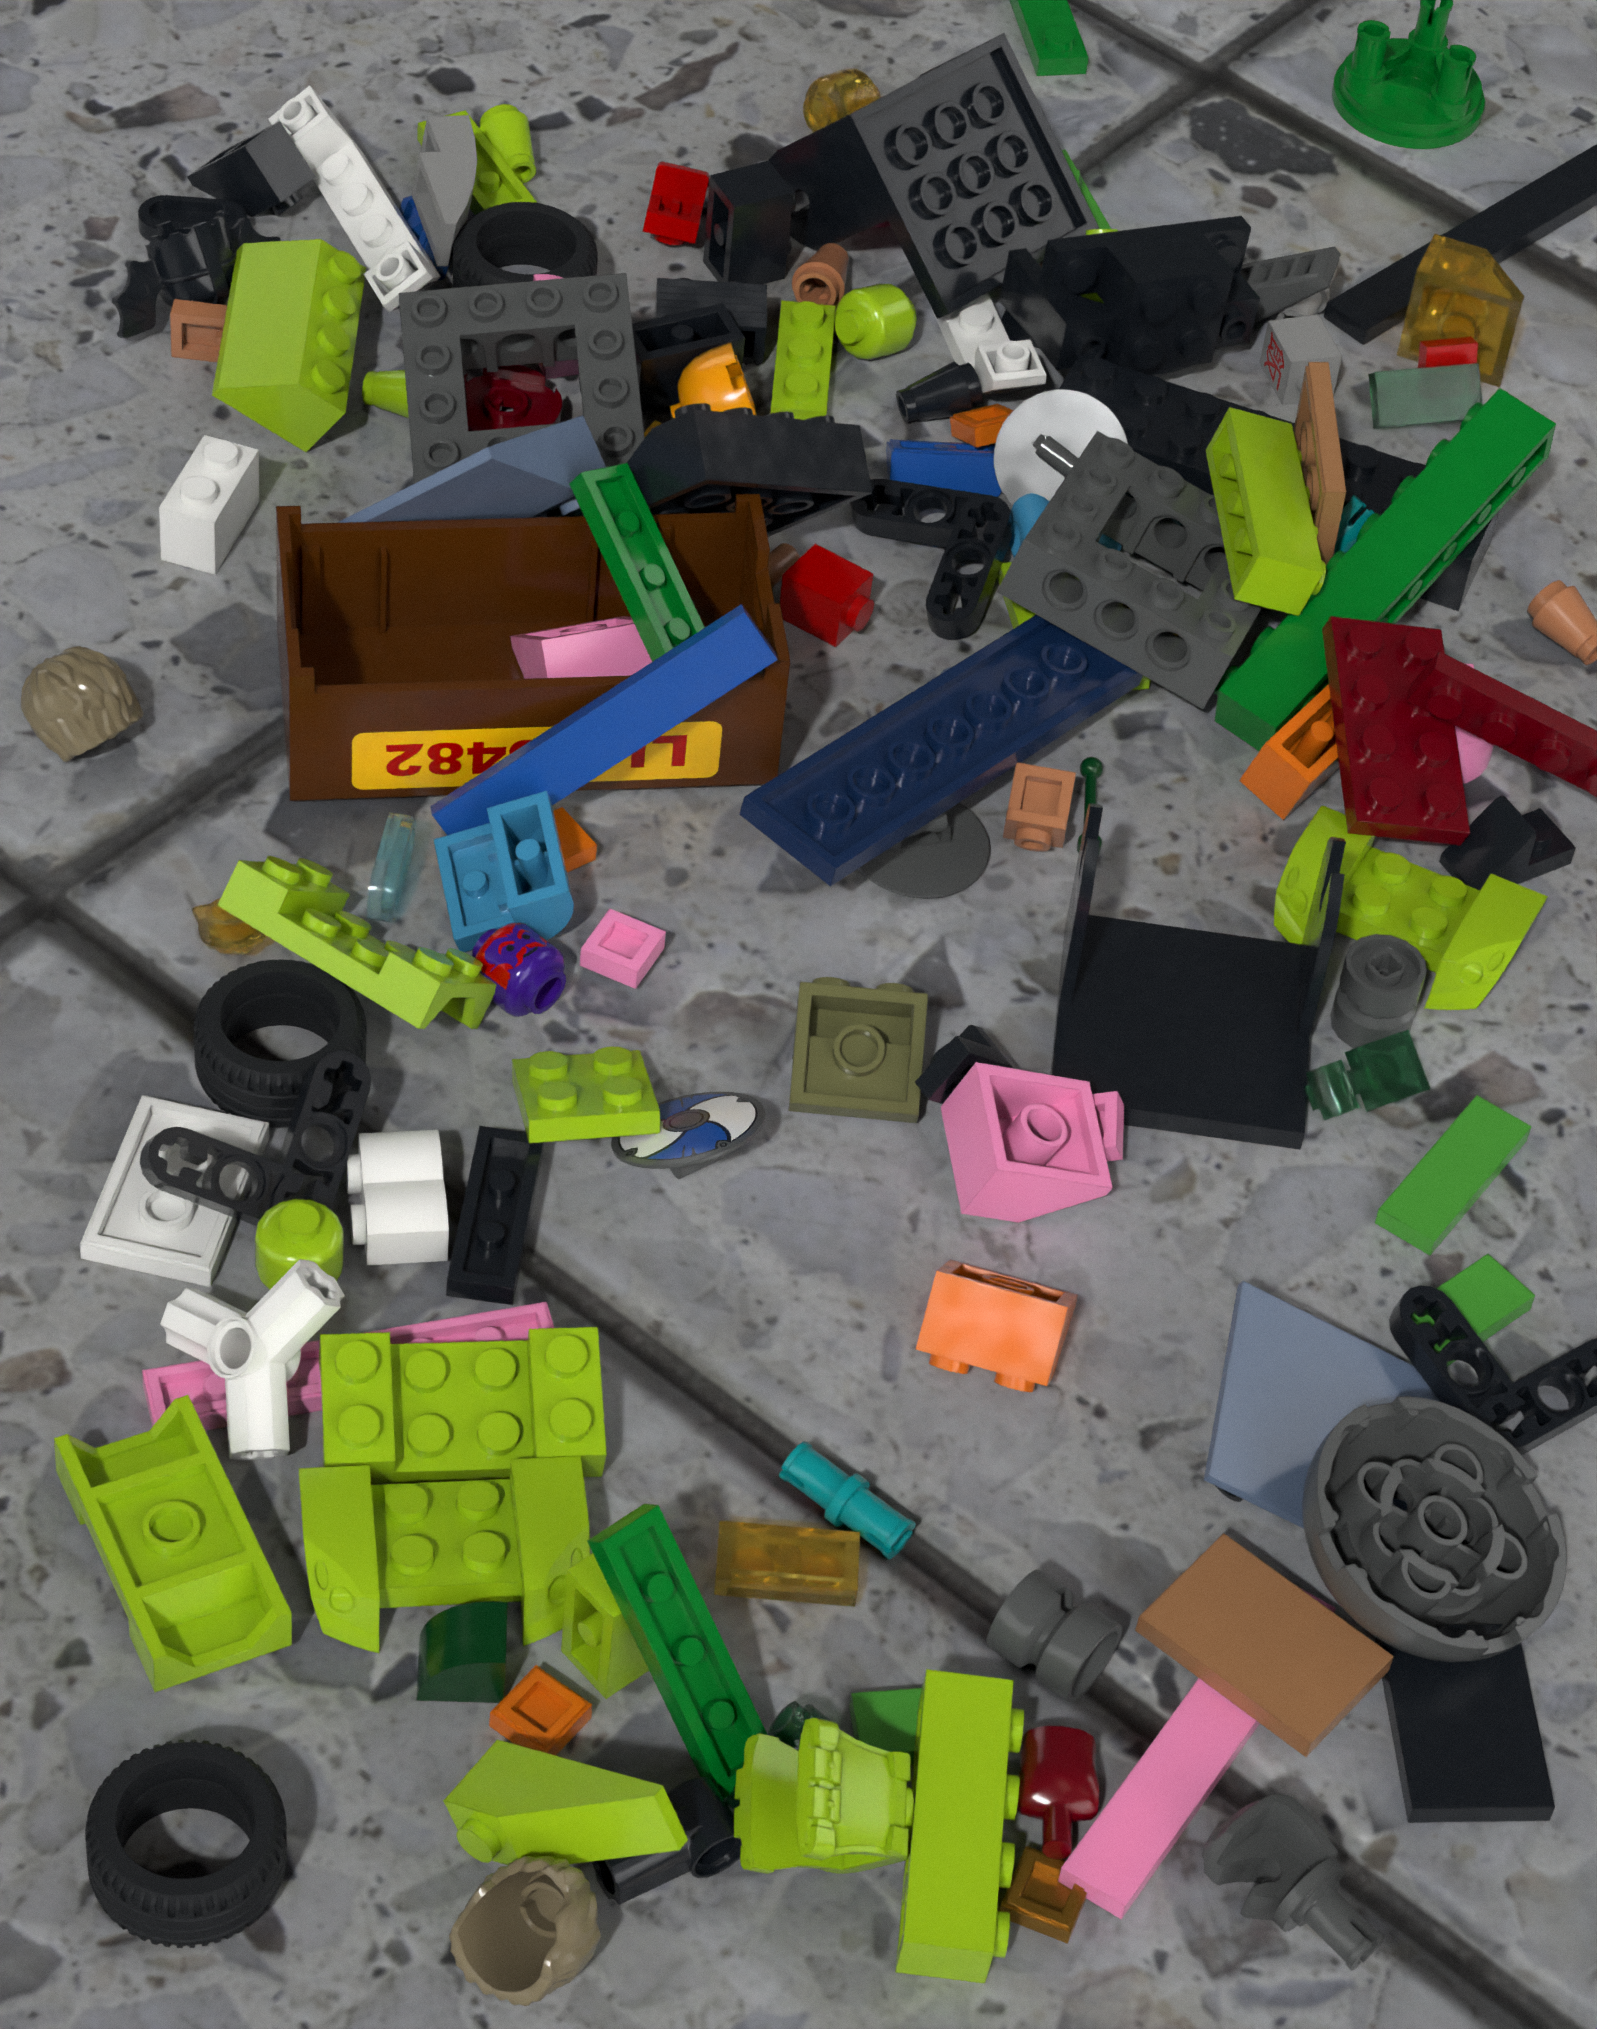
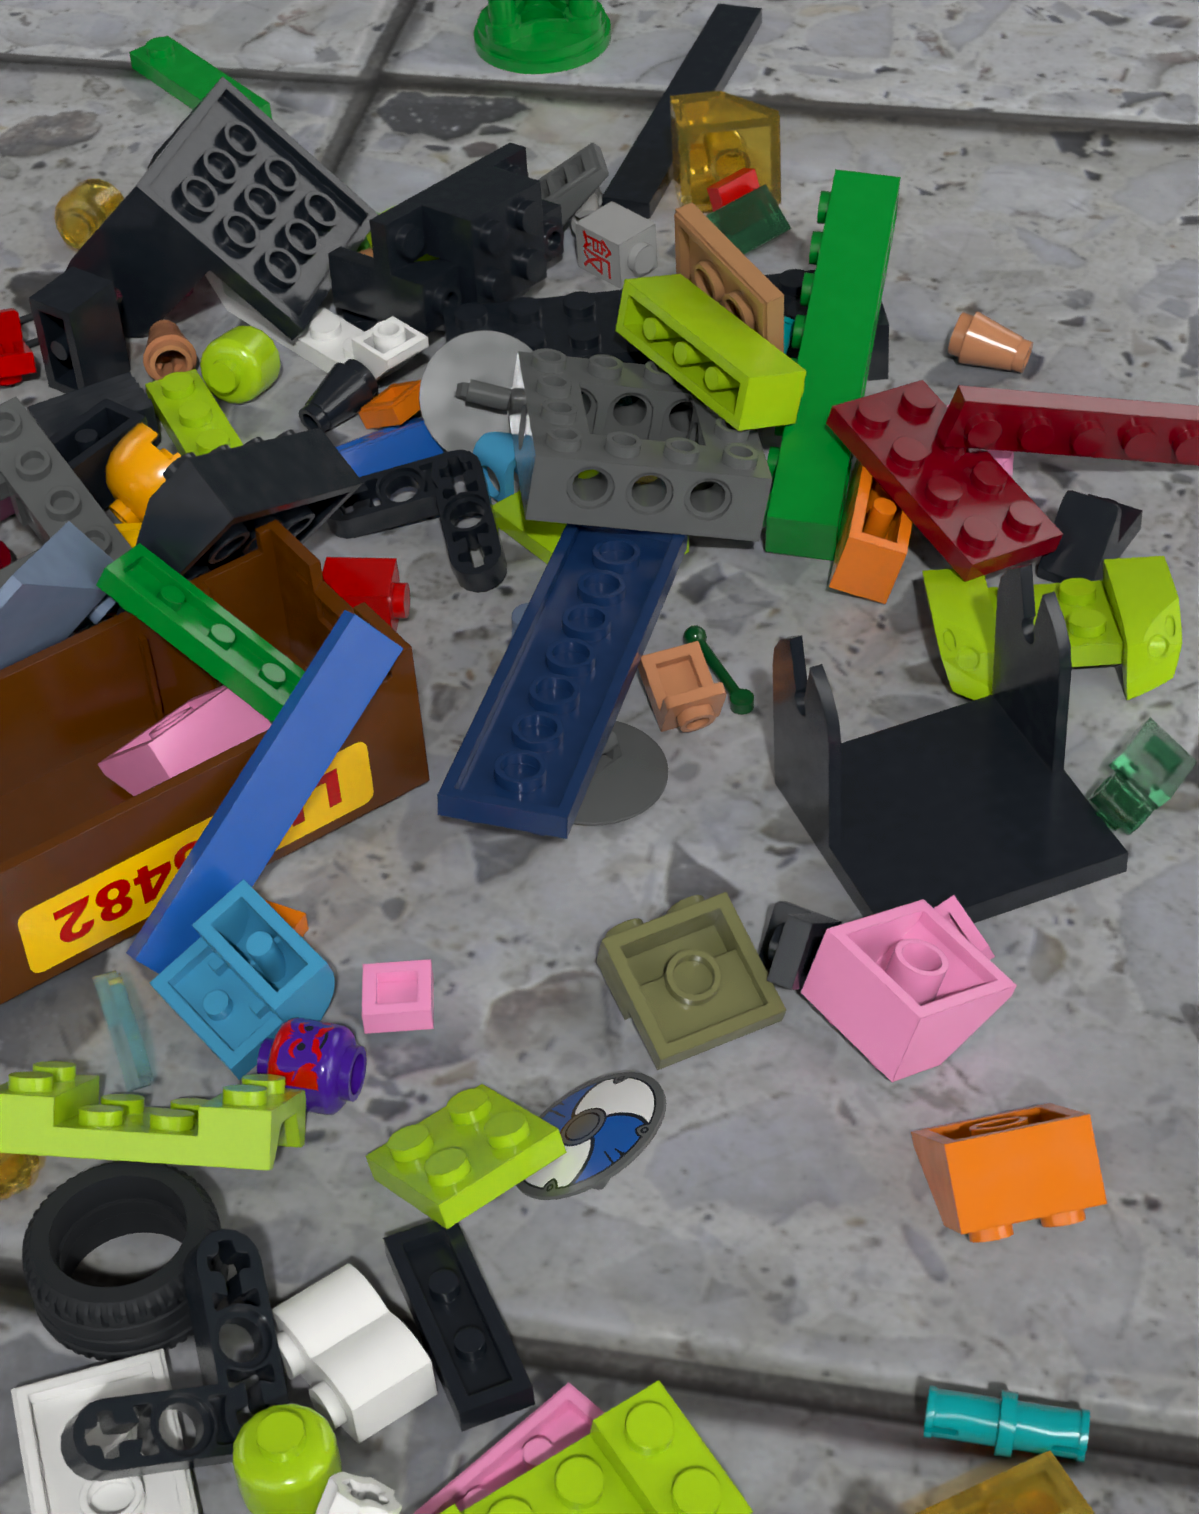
camera: 20 degrees left, 5 degrees down
(1377, 989) = (1101, 700): dark grey wheel -> none

